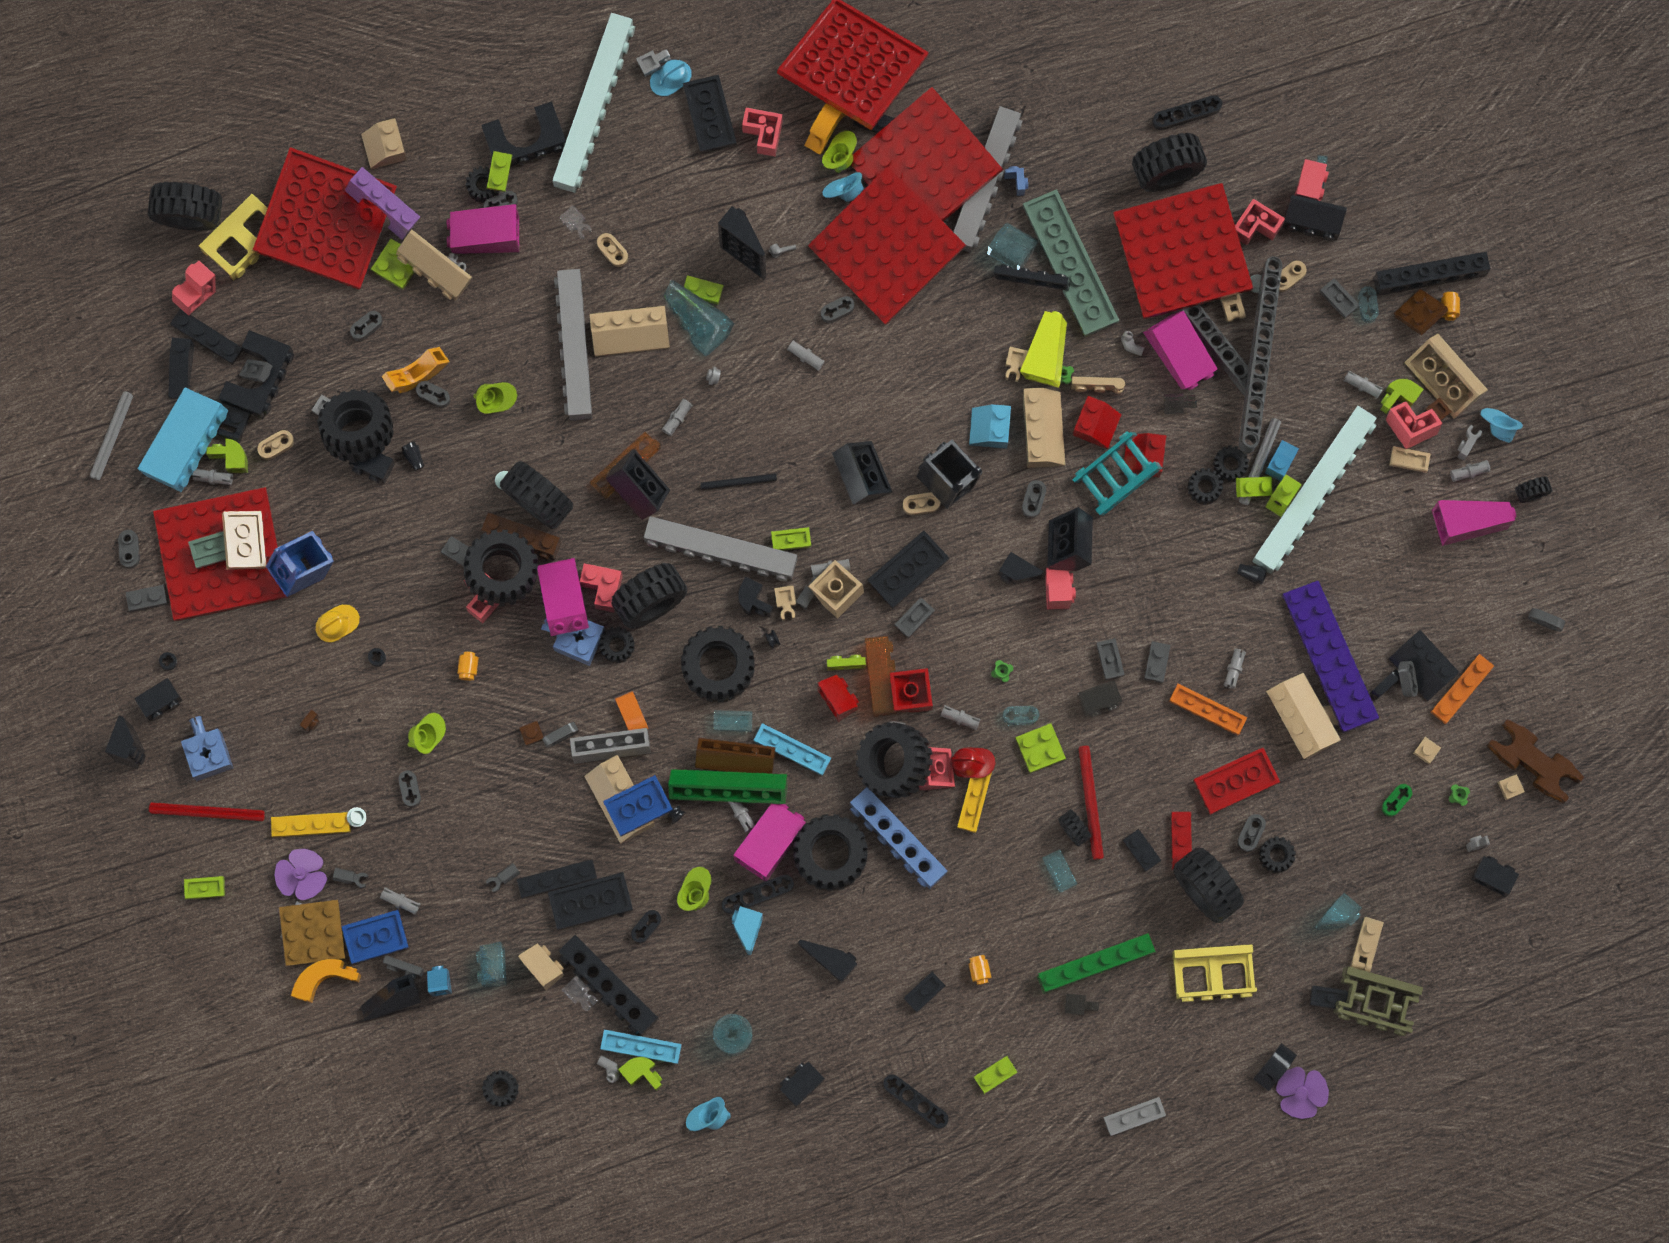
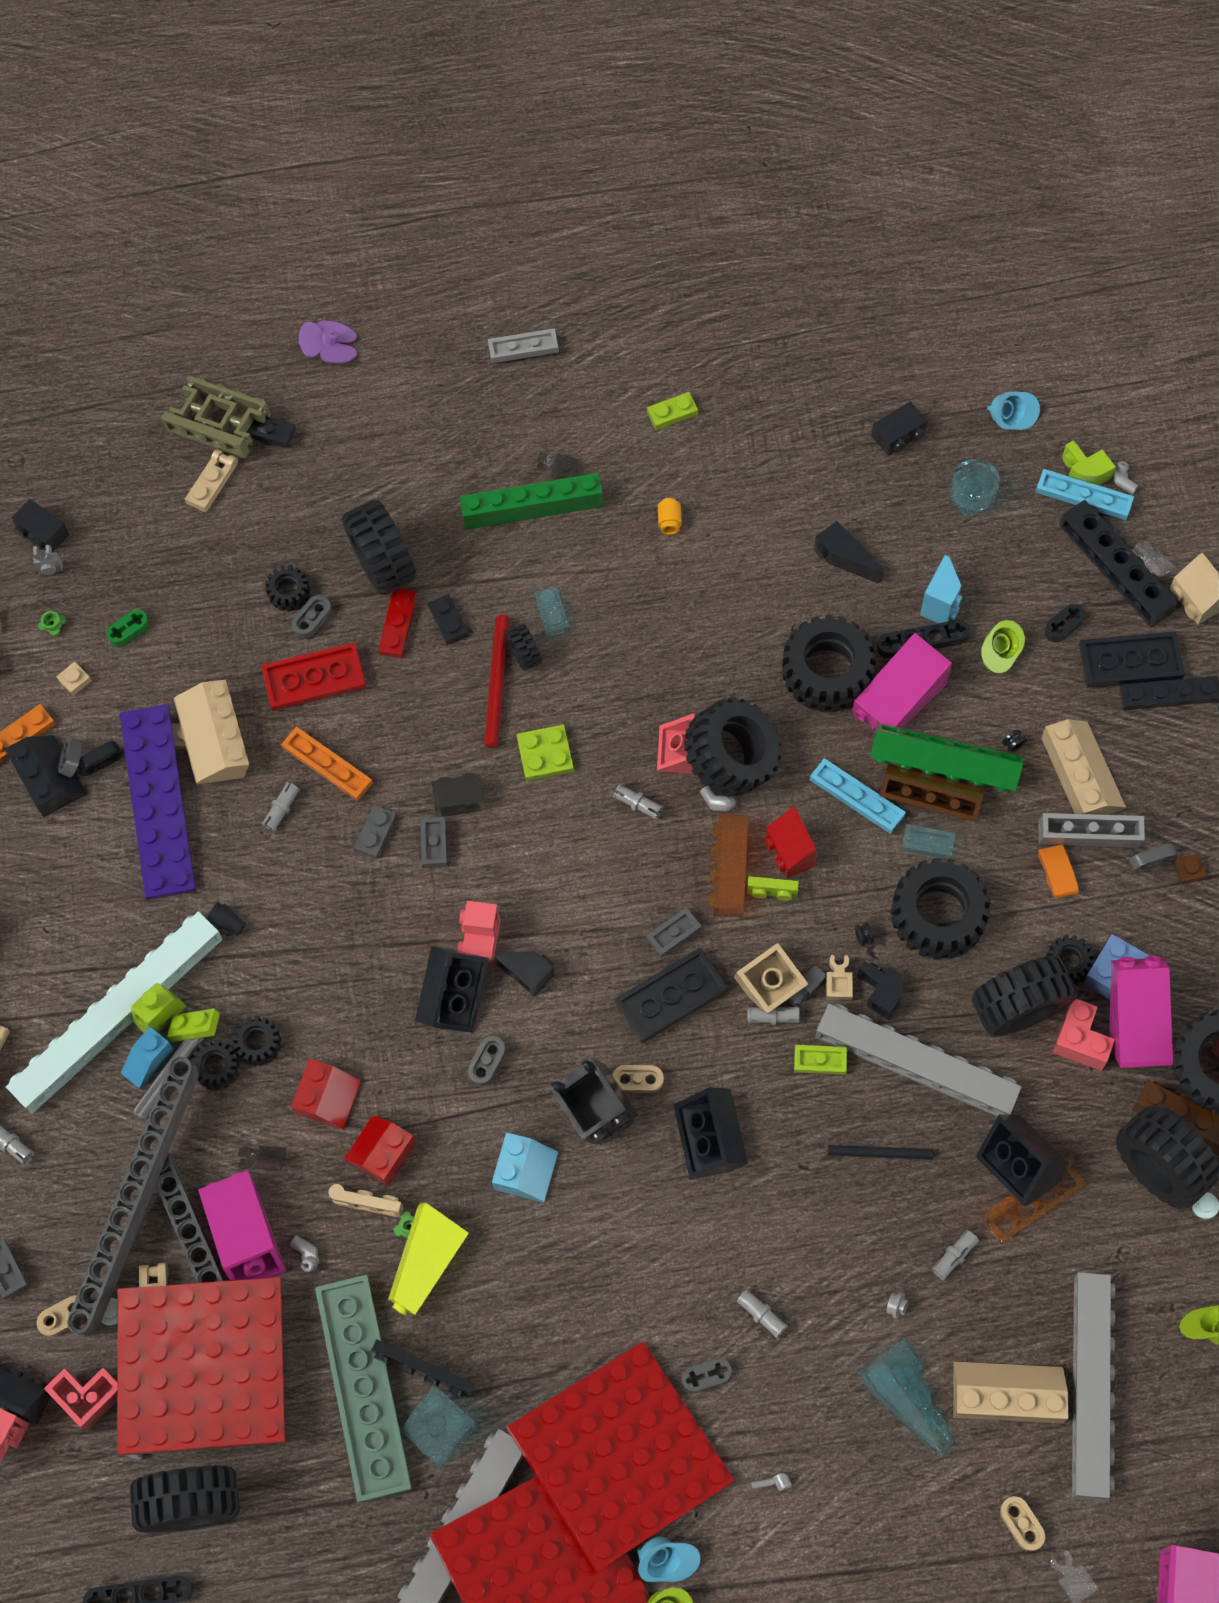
camera: 165 degrees left, 10 degrees down
(637, 805) = (1065, 740): blue plate -> none
(704, 289) = (895, 1440): lime plate -> none
(741, 242) = (835, 1486): black slope -> none
(742, 814) = (927, 723): light grey pin -> none
(869, 799) = (711, 622): medium blue brick -> none
(911, 691) = (695, 836): red slope -> none
(917, 1099) = (767, 398): black beam -> none
(924, 992) = (739, 503): black plate -> none
(973, 762) = (632, 743): red piece -> none
(973, 803) = (635, 711): yellow plate -> none
(1000, 665) = (573, 843): bright green plate -> none
(1015, 361) = (470, 1255): tan plate -> none
(1018, 174) = (405, 1523): medium blue bracket -> none
(1021, 720) = (561, 794): clear light blue beam -> none
(1043, 428) = (453, 1154): tan slope -> none
(1134, 480) = (371, 1041): teal fence -> none
(1212, 960) = (394, 490): light yellow window -> none
(1275, 1067) = (348, 366): black brick -> none
(1340, 914) = (235, 505): clear light blue slope -> none

